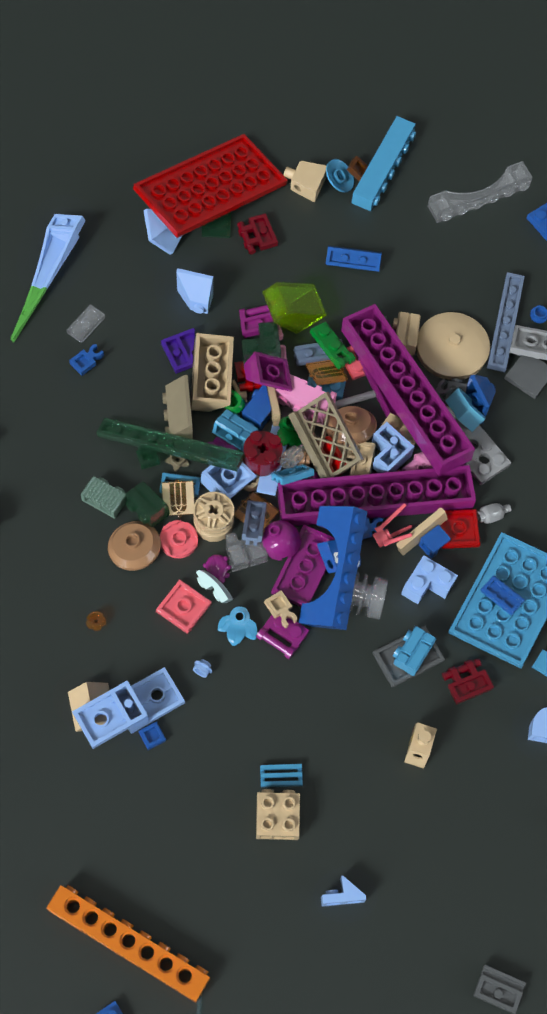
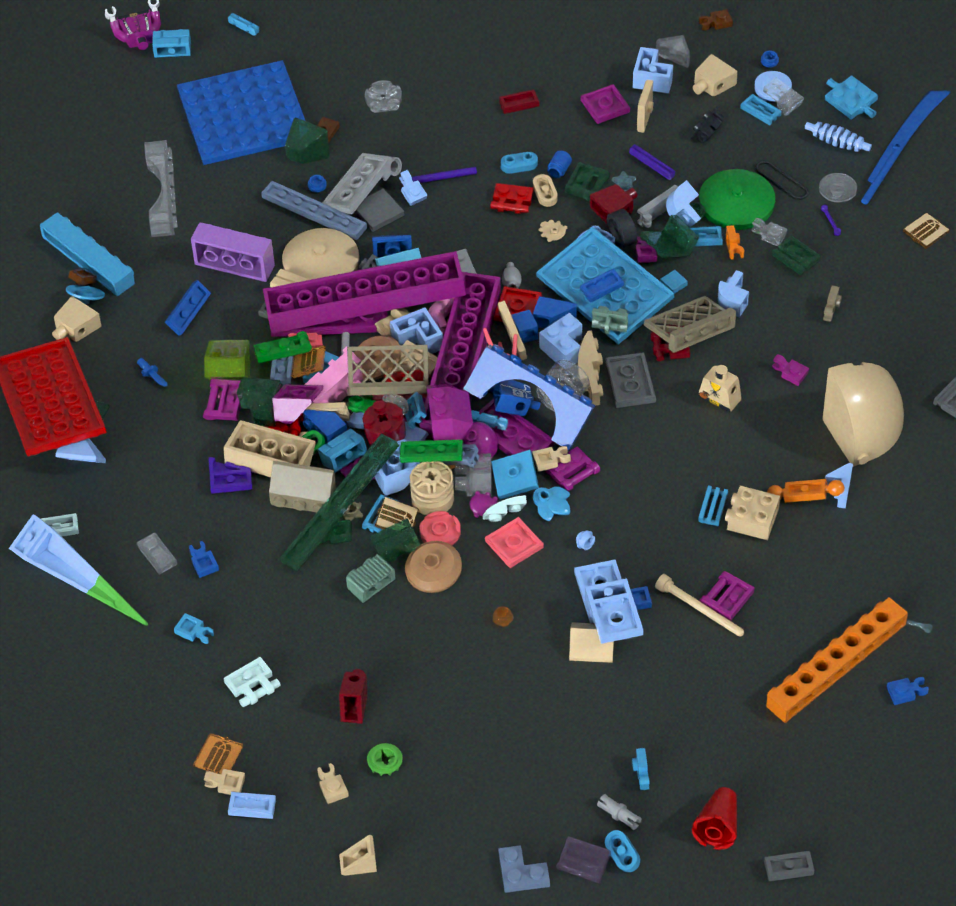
camera: 65 degrees left, 15 degrees down
(13, 374) = (191, 627): none -> dark azure plate
(96, 252) = (64, 529): none -> light aqua tile
(172, 755) = (666, 585): none -> tan piece
(173, 823) = (732, 598): none -> magenta plate
(195, 290) = (167, 442): light blue slope -> none
(240, 501) = (431, 451): none -> green plate
(255, 583) = (515, 474): none -> dark azure plate
(262, 231) = (119, 374): dark red plate -> none
(275, 254) = (151, 371): none -> blue piece
(289, 501) = (449, 412): none -> magenta wedge
(307, 541) = (490, 420): none -> dark azure axle
(322, 861) = (807, 490): none -> orange plate
(412, 610) = (590, 363): none -> tan slope
(414, 651) = (630, 367): dark azure brick -> none
(424, 271) = (233, 252): none -> medium lavender brick
(433, 899) = (863, 410): none -> tan brick
(459, 560) = (551, 310): none -> blue slope
(460, 615) = (610, 320): none -> sand green hips
(473, 809) = (790, 371): none -> magenta plate
(486, 704) = (693, 330): none -> dark tan fence

